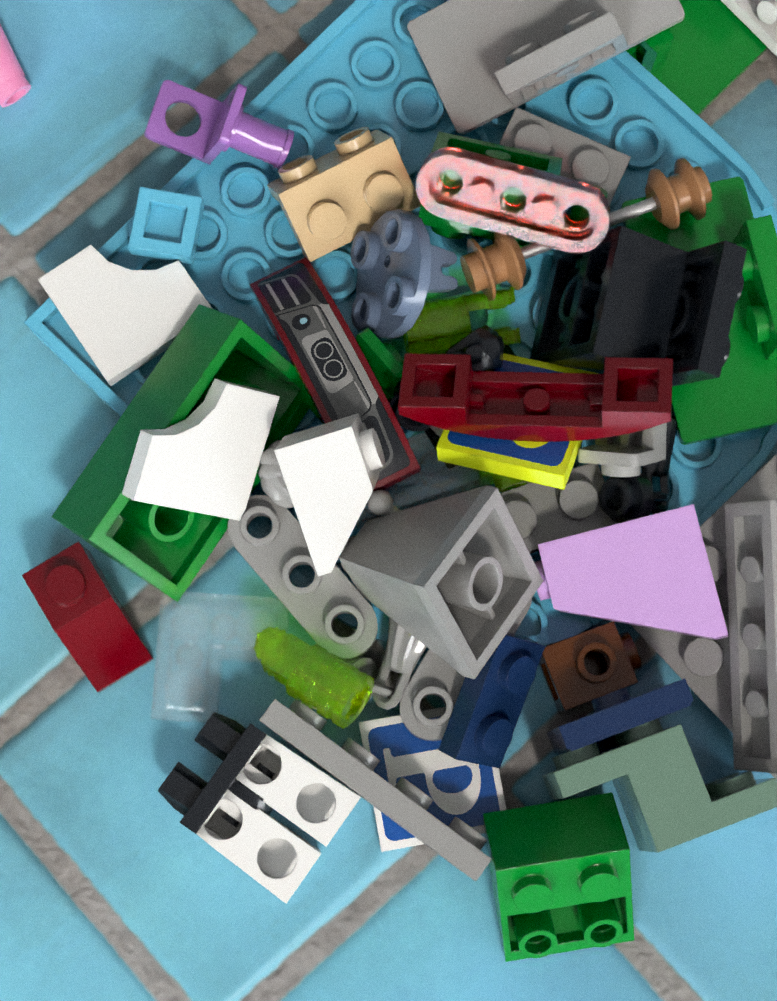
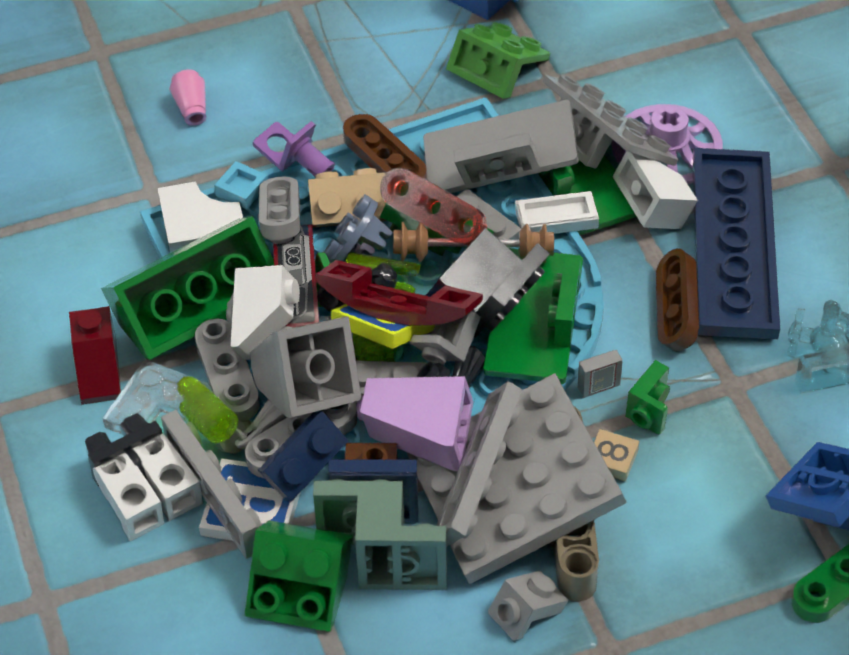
camera: 25 degrees right, 30 degrees down
(208, 457) = (198, 279): white tile -> none
(255, 246) = (279, 209): none -> light grey plate
(345, 61) = (379, 146): none -> reddish brown plate
(665, 102) = (558, 212): none -> white tile

